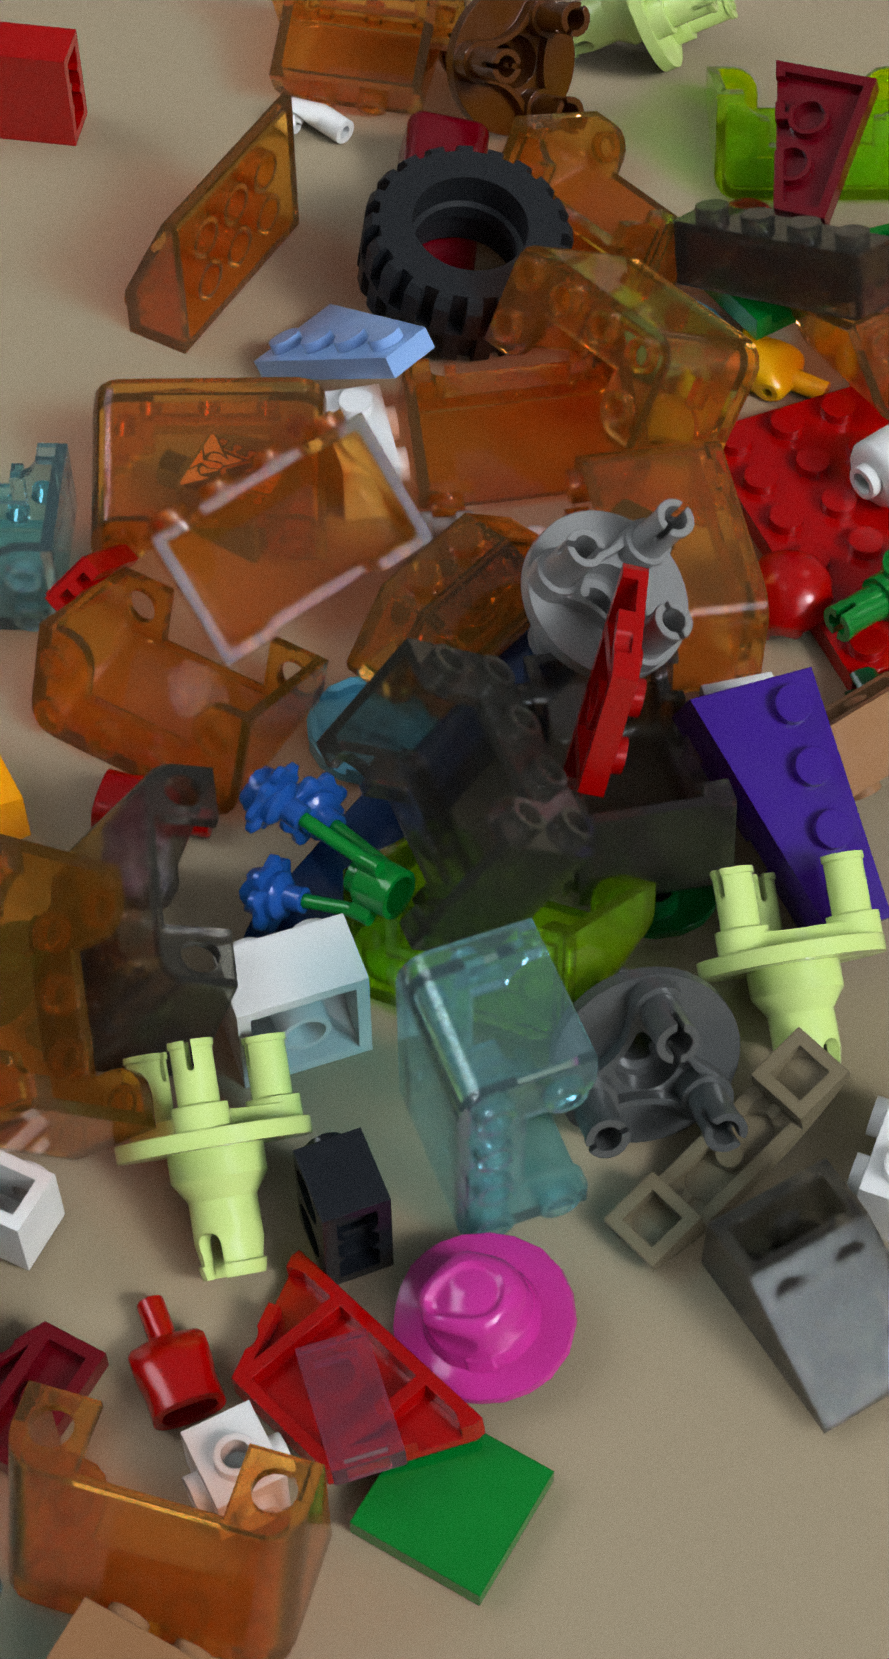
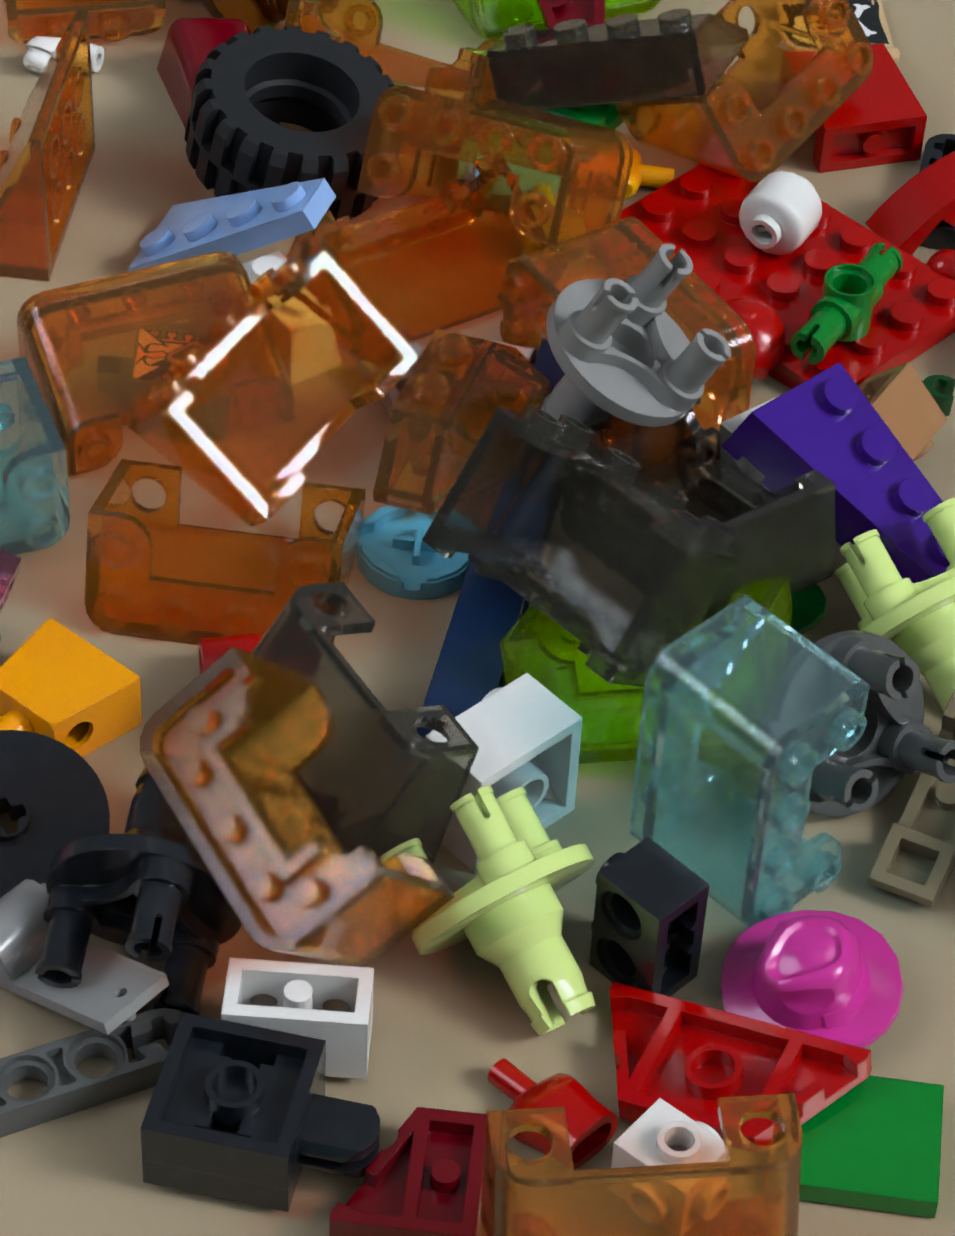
camera: 25 degrees left, 10 degrees down
(89, 572) = (93, 474): red tile -> none
(315, 812) = (440, 600): plant -> none
(350, 1407) = (737, 1062): clear pink tile -> none
(612, 689) = (683, 411): red wing -> none

